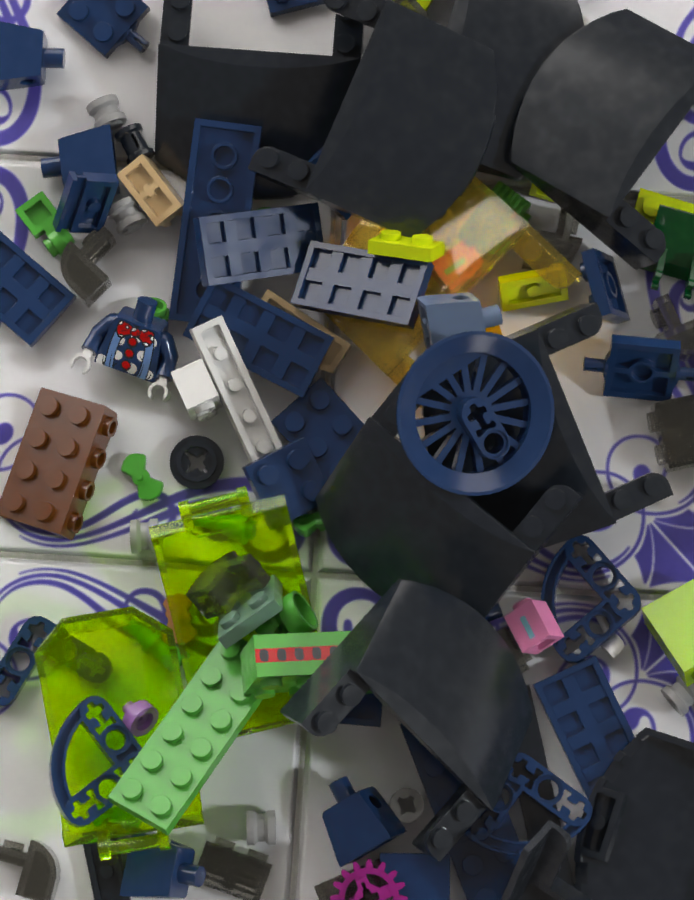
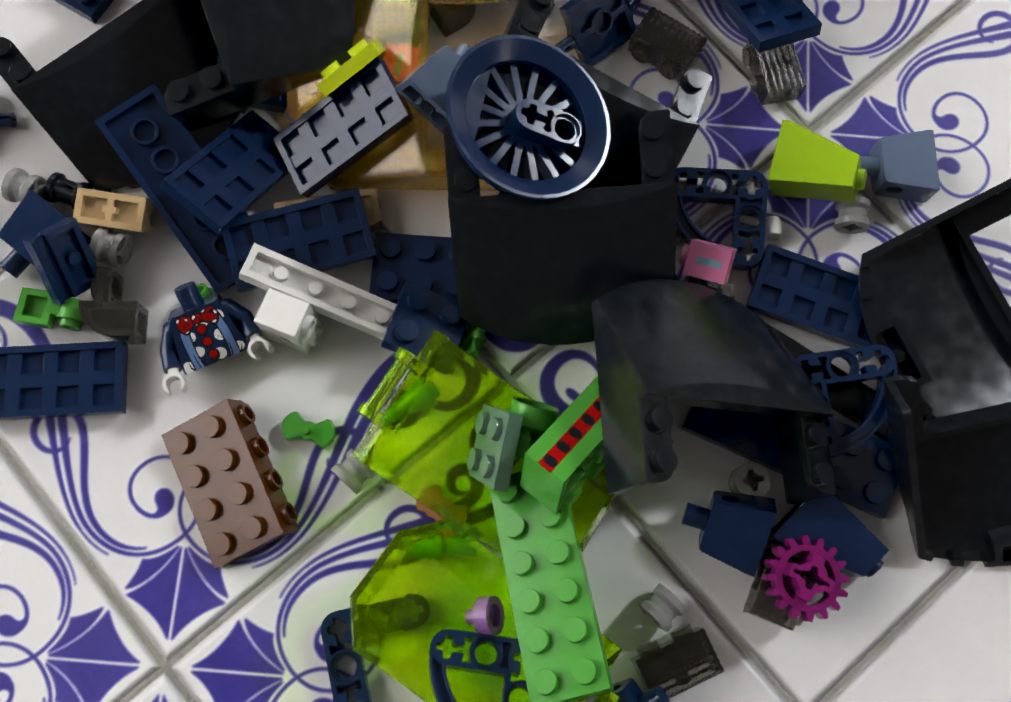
camera: 50 degrees left, 5 degrees down
(196, 447) = (329, 368): black gear -> none
(224, 582) = (452, 444): clear smoke brick -> none
(527, 290) = (472, 28): neon yellow plate -> none

